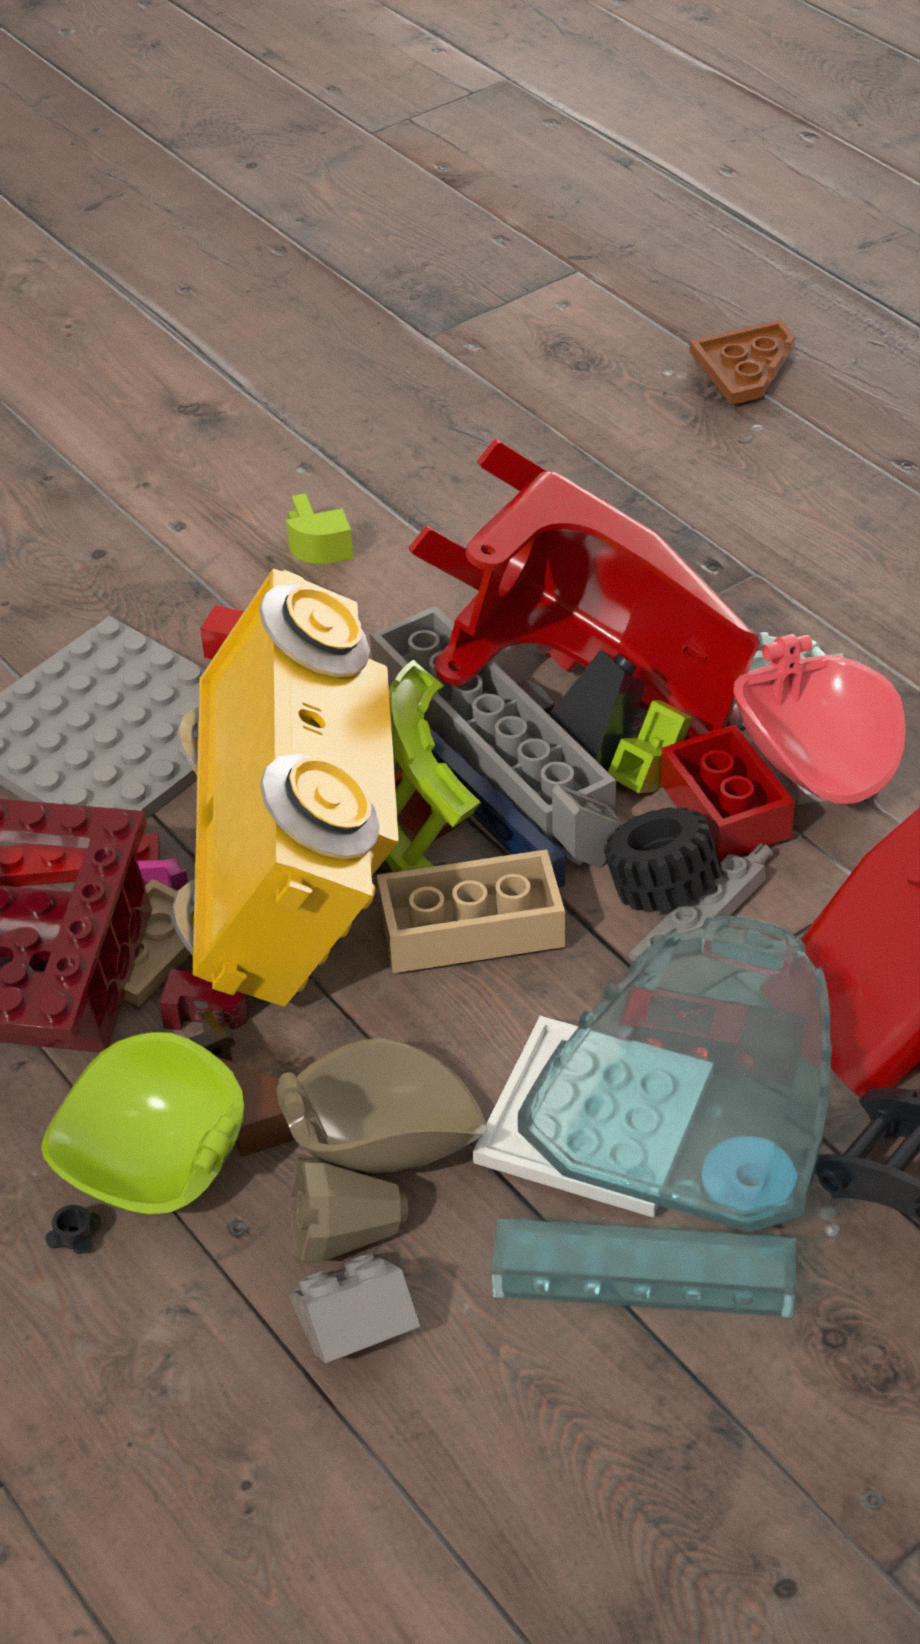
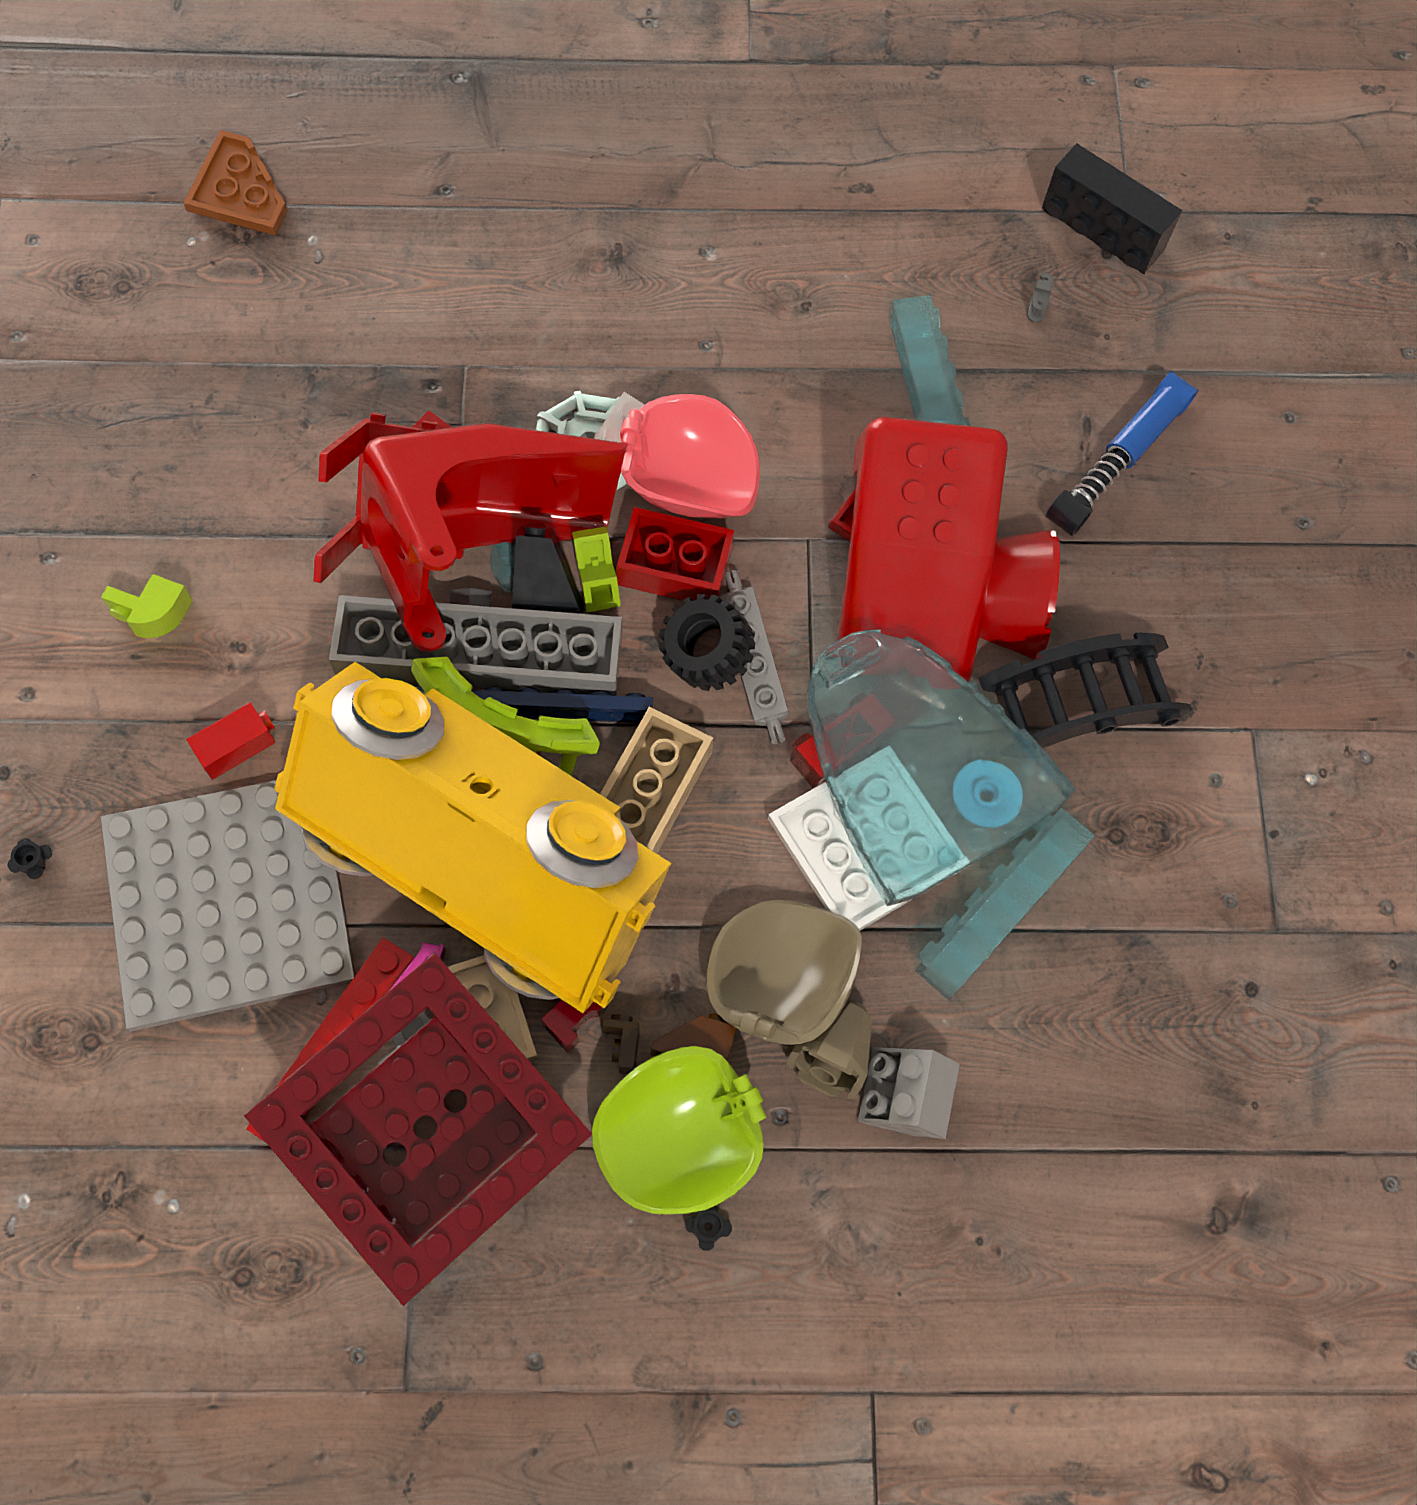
camera: 60 degrees left, 25 degrees up
(37, 602) = (22, 851): none -> black plate
(582, 825) = (638, 664): light grey slope -> none

